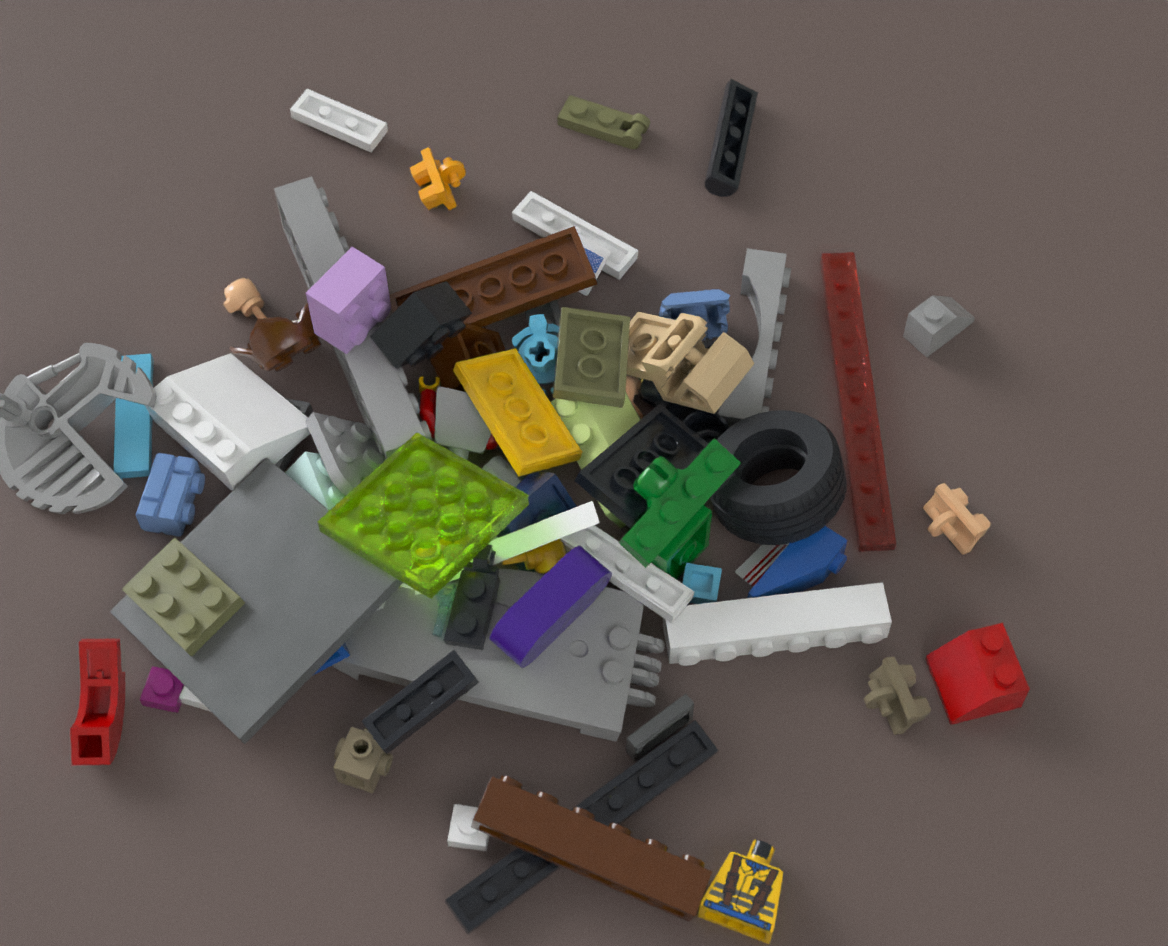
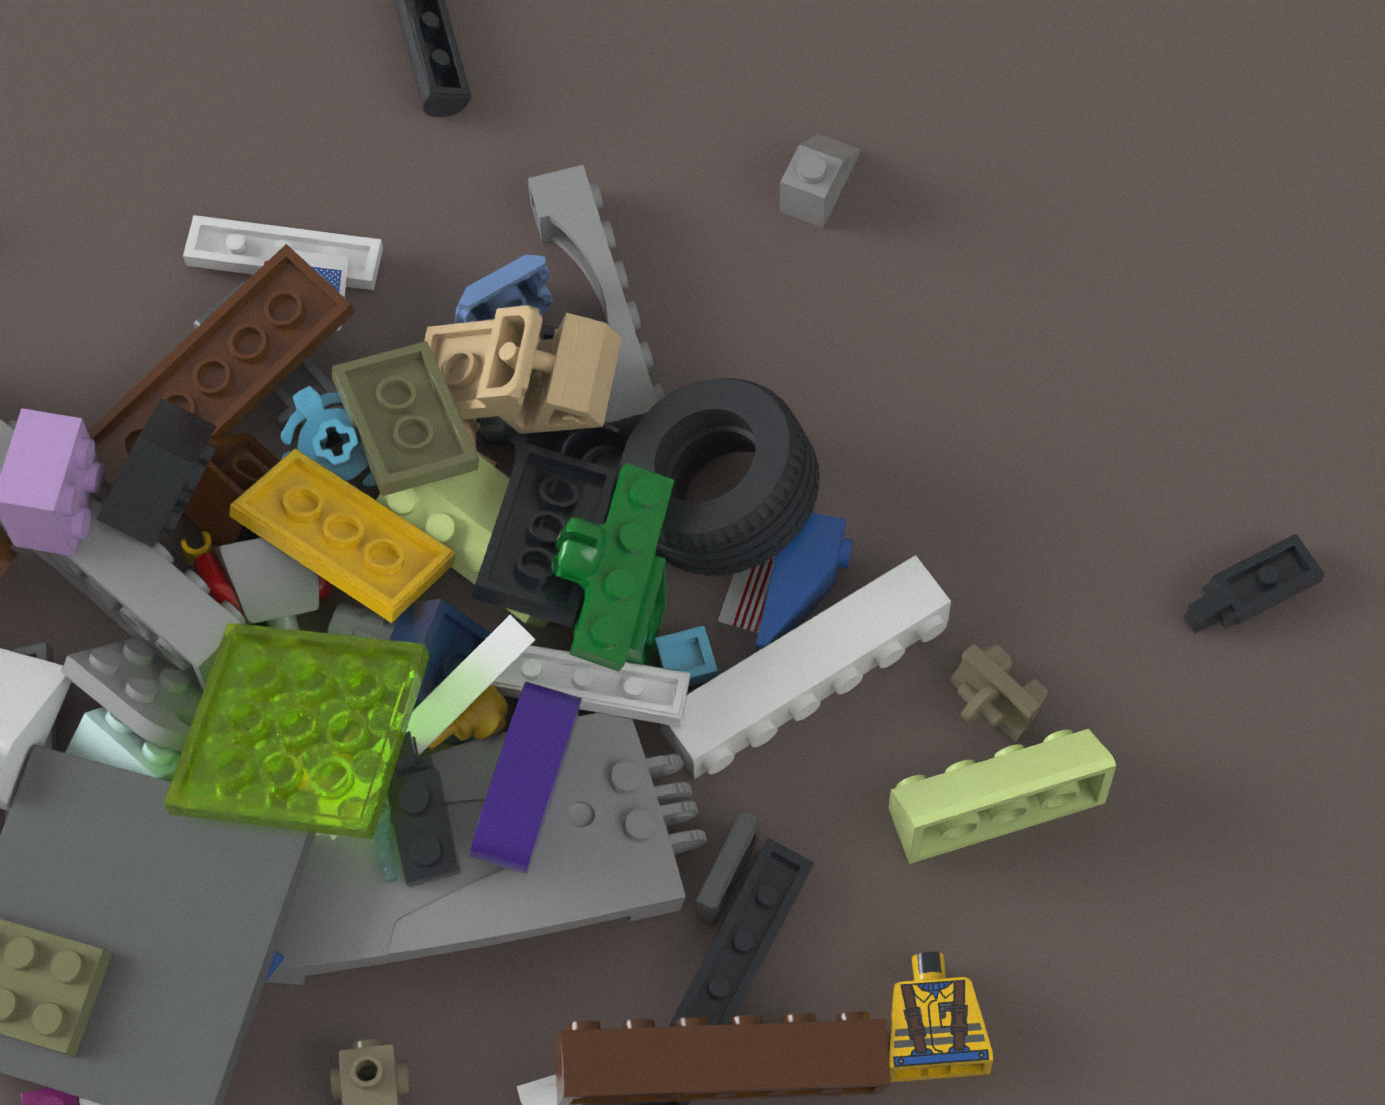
camera: 25 degrees left, 5 degrees up
(420, 702) = (416, 977): black plate -> none
(441, 176) = (38, 240): light orange hips -> none
(603, 122) = (240, 75): olive plate -> none
(857, 404) = (765, 325): clear red plate -> none
(866, 762) = (1001, 793): none -> yellowish green slope
(952, 518) = (961, 431): light nougat hips -> none
(978, 674) = (1082, 620): red slope -> none
(1110, 704) = (1255, 585): none -> black hinge

